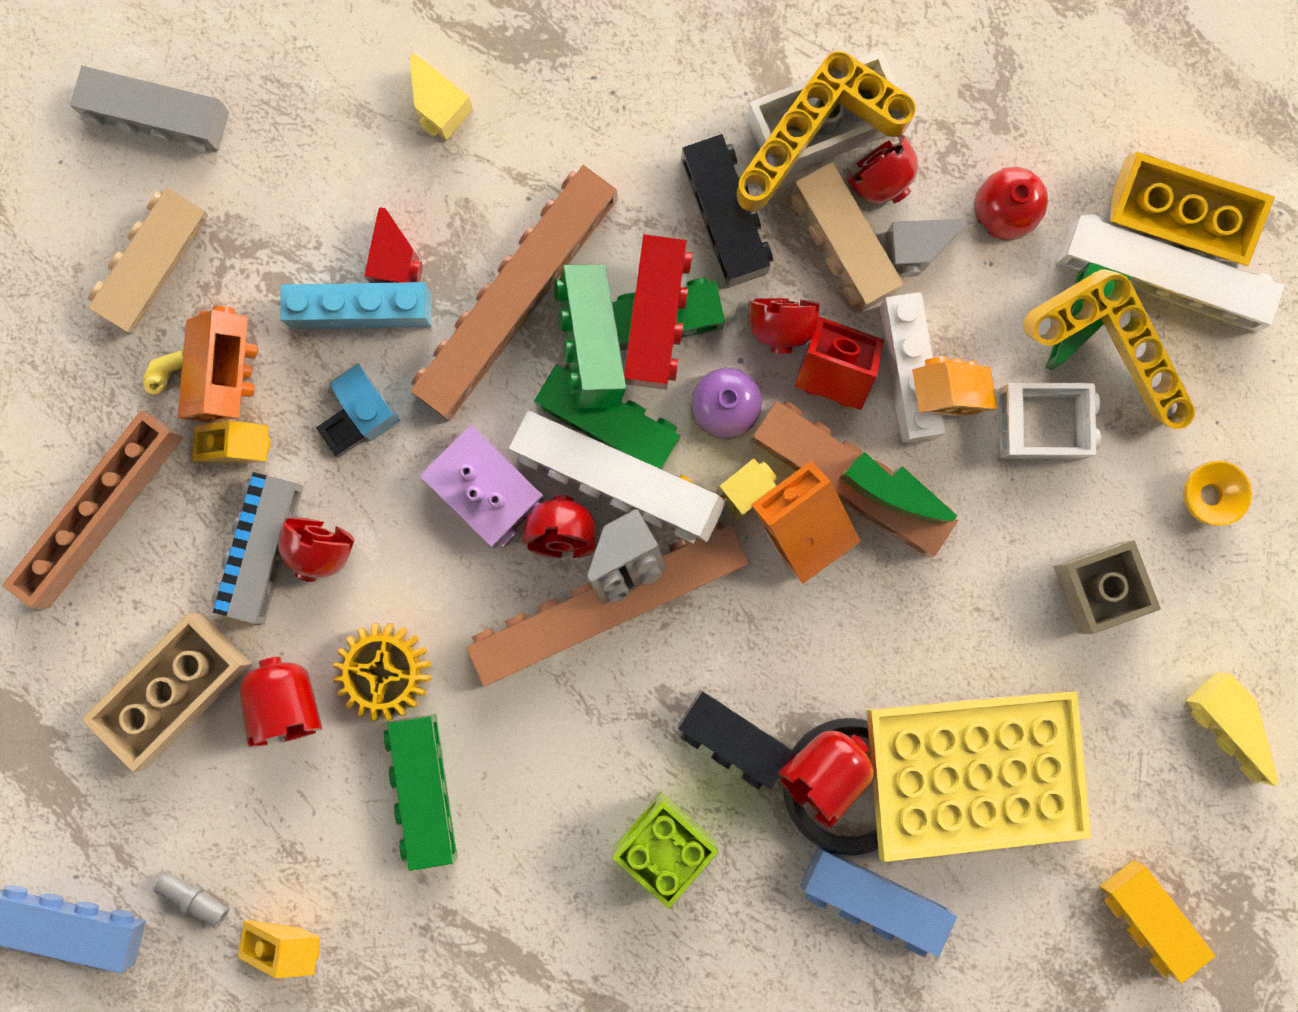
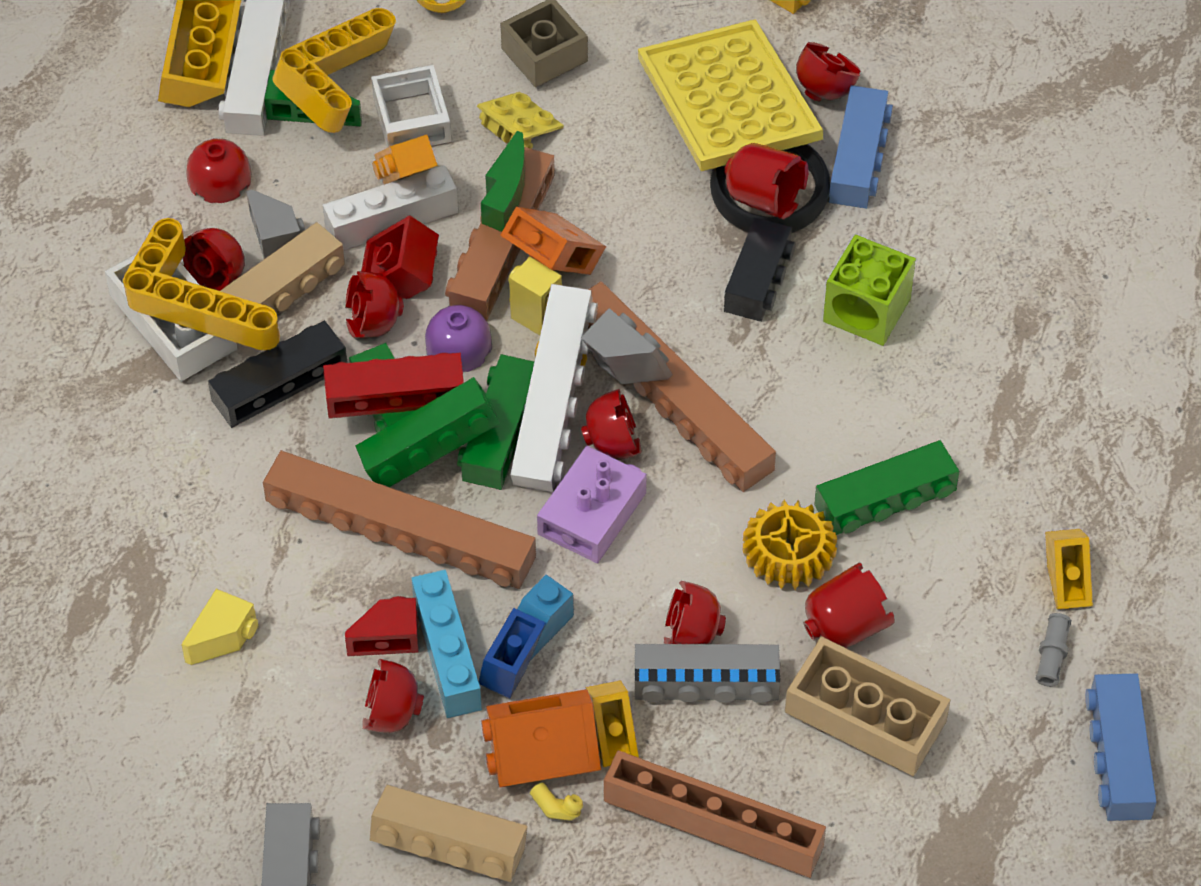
camera: 100 degrees left, 30 degrees down
(305, 239) = (392, 698): none -> red cylinder
(321, 362) = (511, 653): none -> blue slope
(340, 433) = (573, 638): black tile -> none
(986, 896) = (824, 73): none -> red cylinder
(1009, 537) = (517, 113): none -> light yellow hinge

